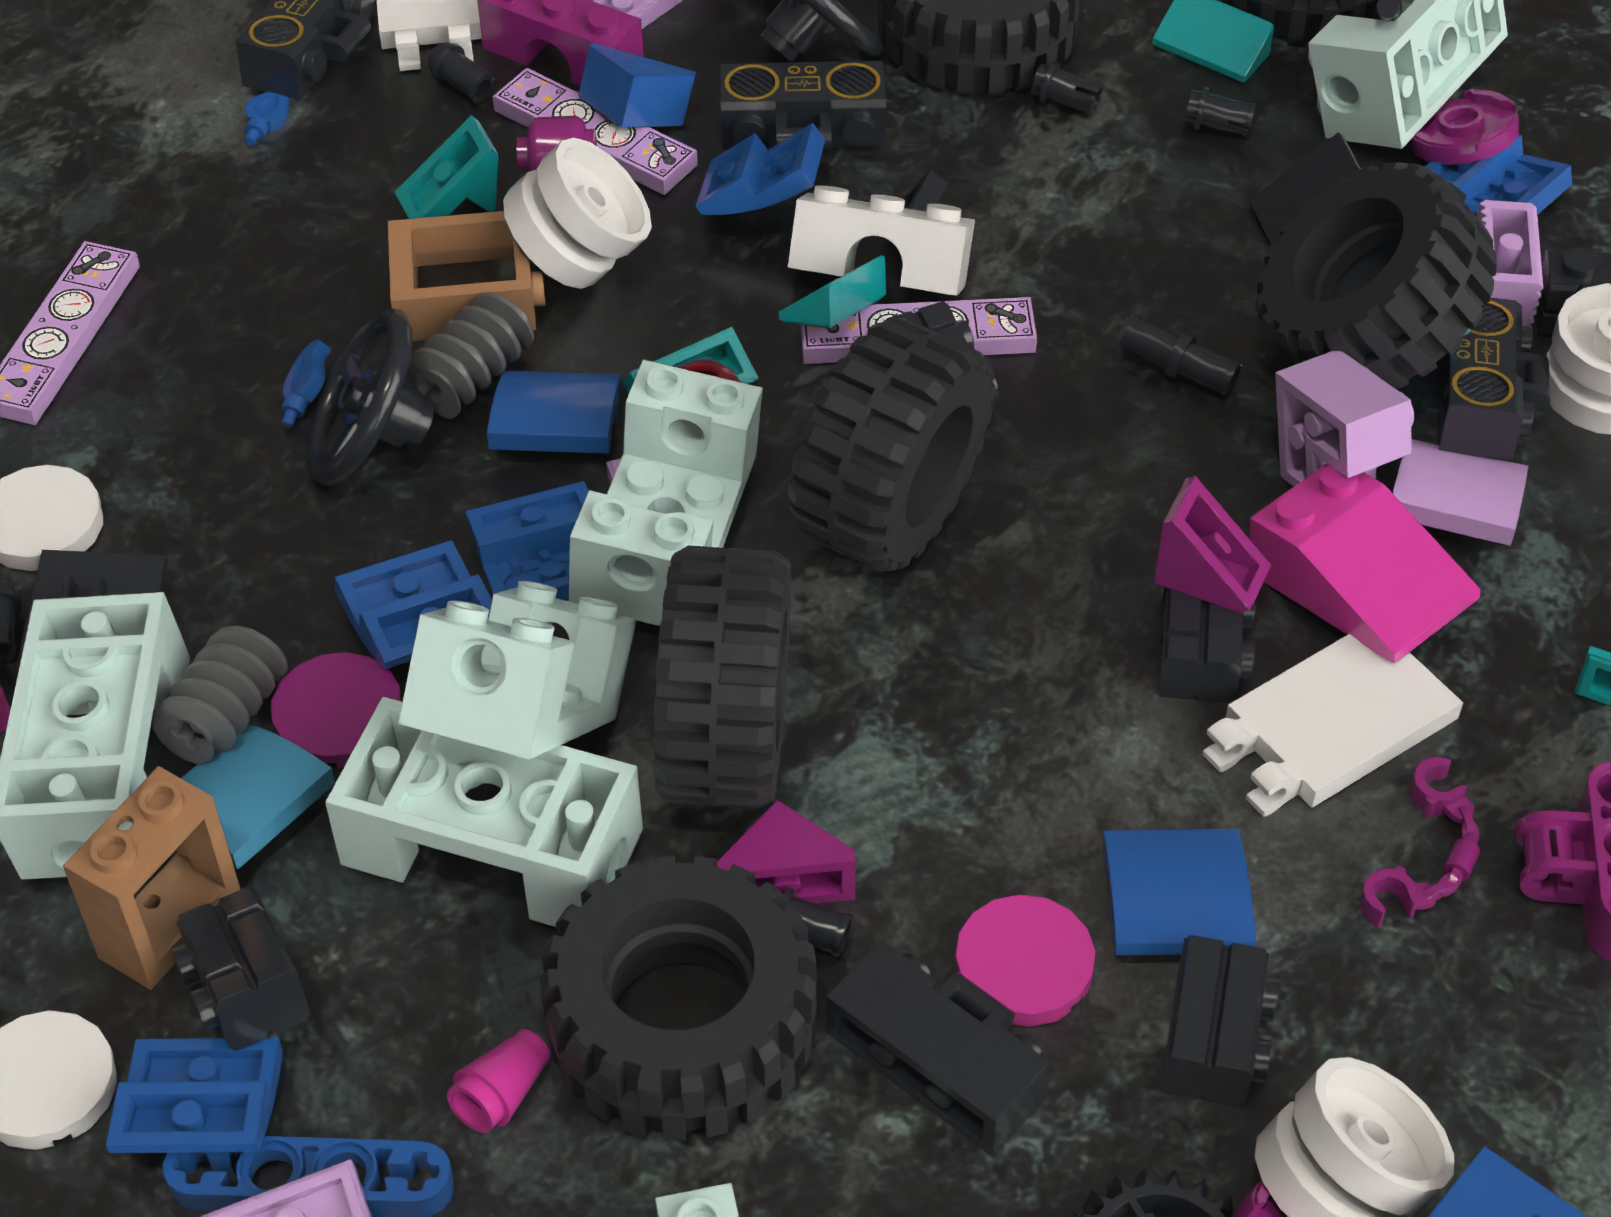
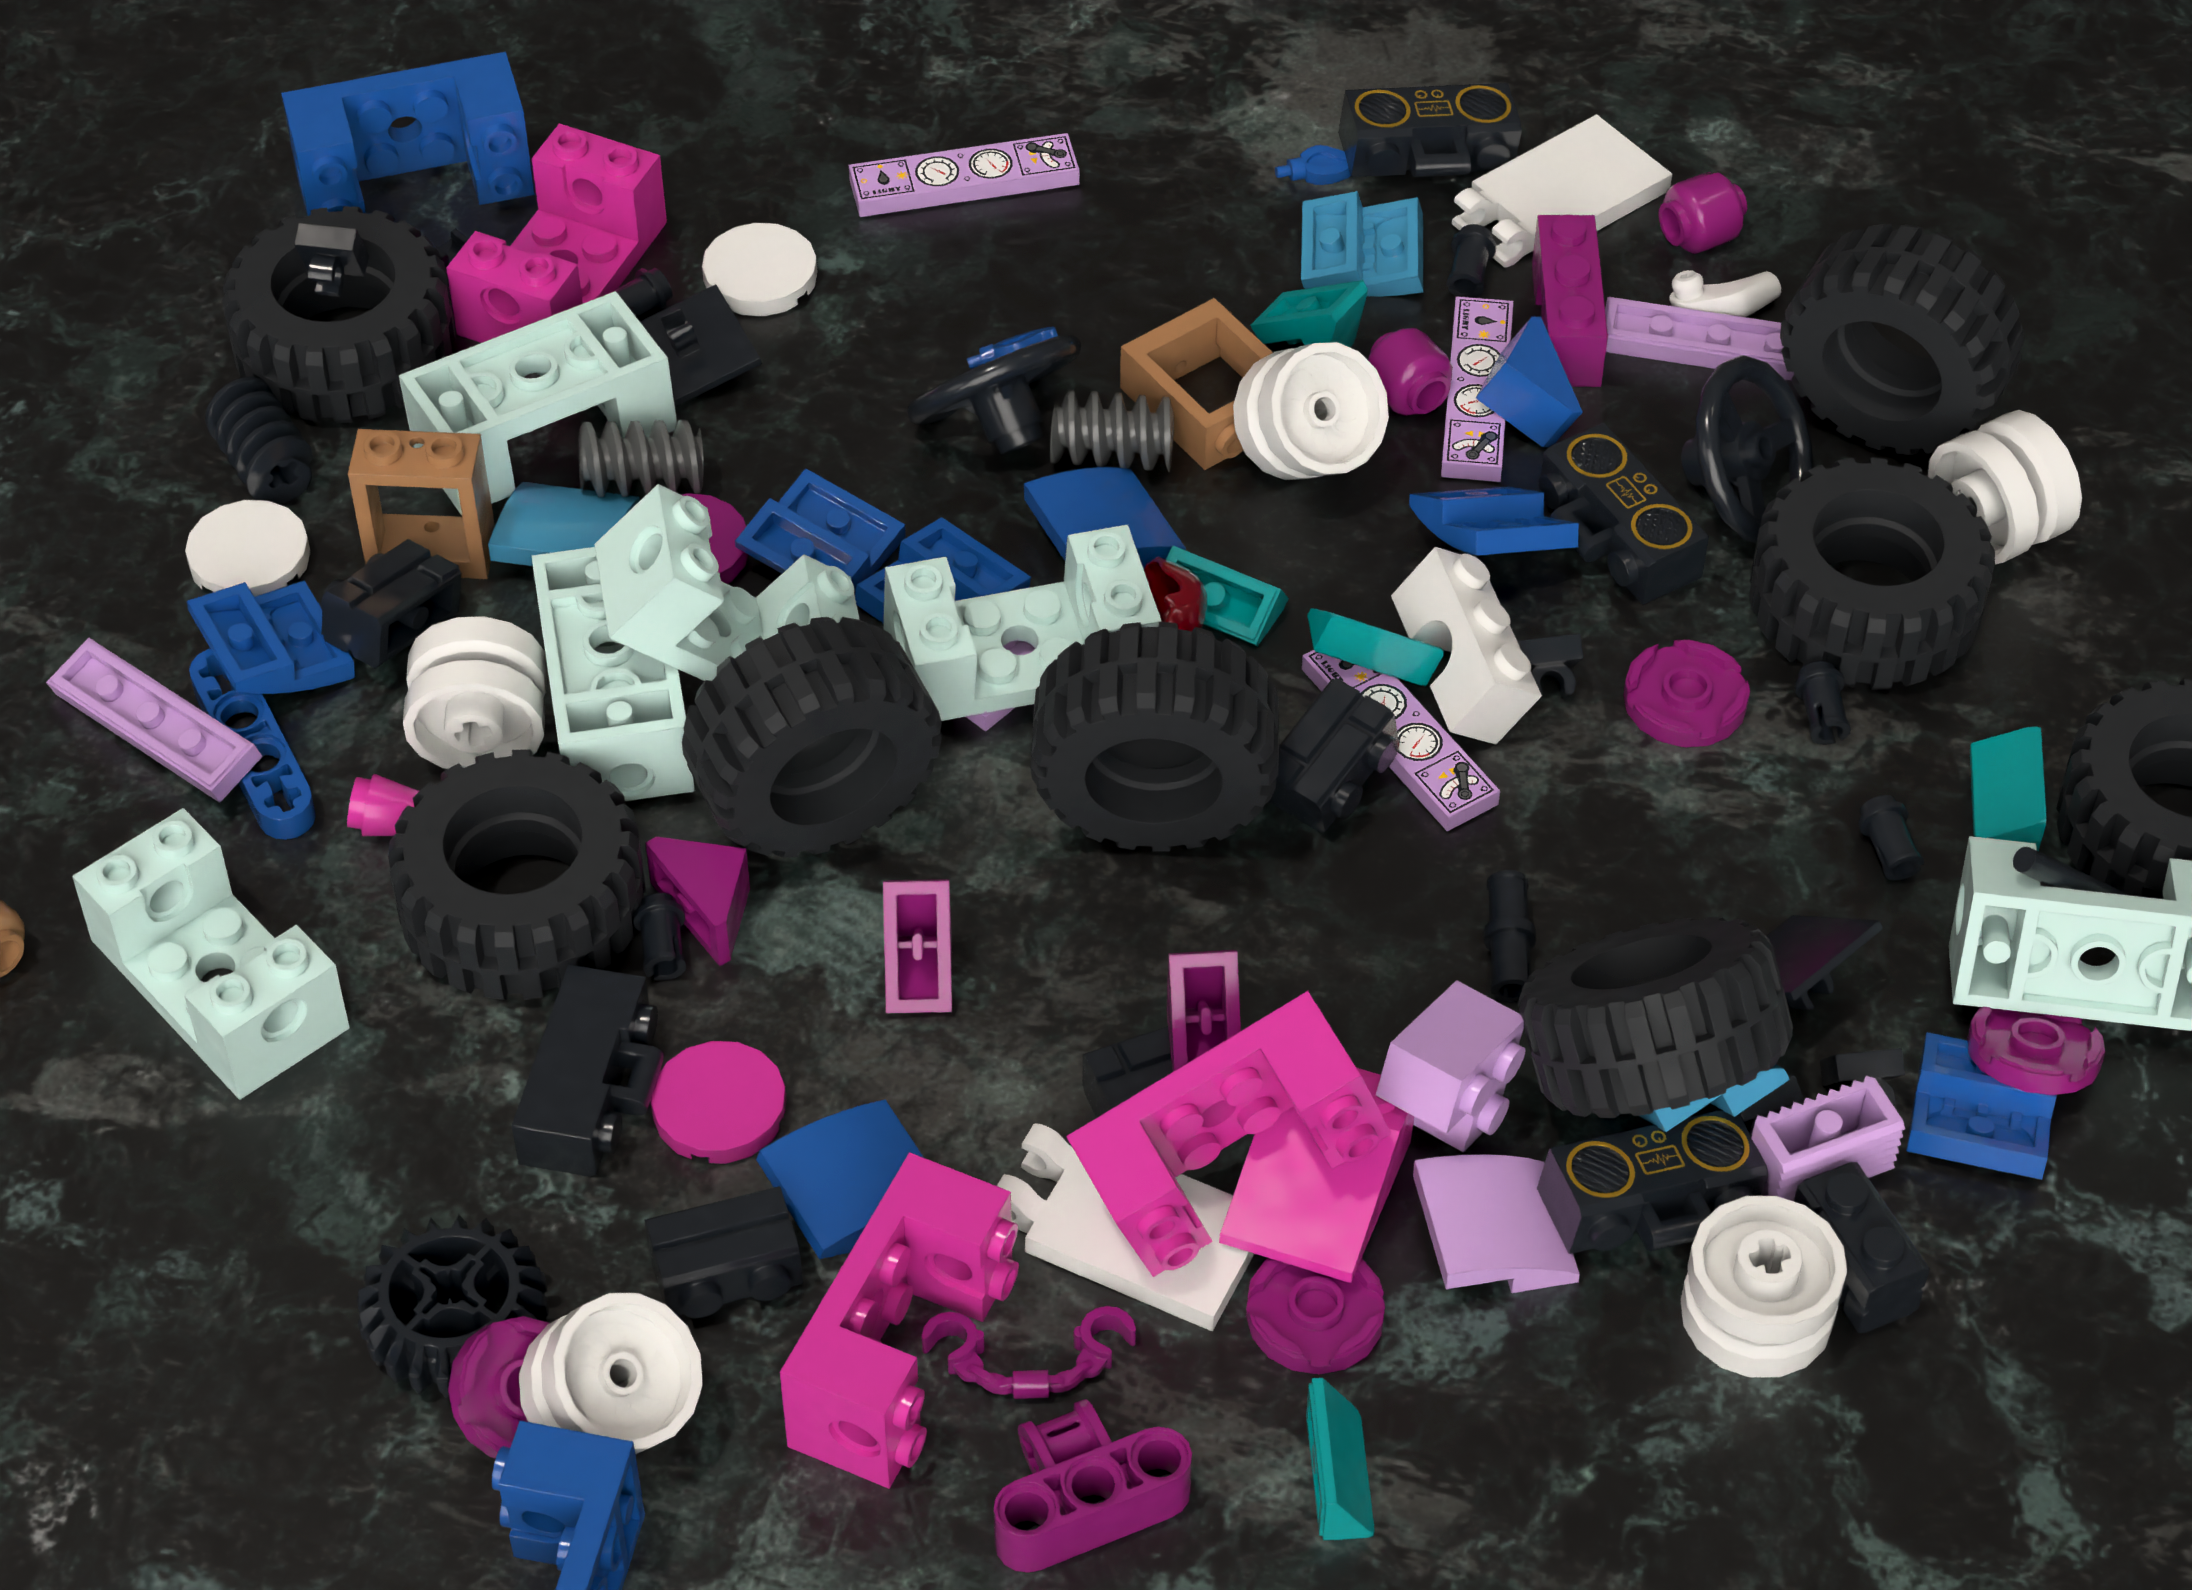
camera: 60 degrees right, 0 degrees up
(383, 126) = (1363, 243): none -> dark azure slope
(435, 935) = (474, 691): none -> white wheel
(955, 733) = (917, 946): none -> magenta slope
(997, 159) = (1686, 693): none -> magenta tile
(1350, 489) = (1209, 1105): none -> dark pink plate
(1430, 986) = (928, 1238): none -> dark pink plate
(1486, 646) = (1314, 1319): none -> magenta tile

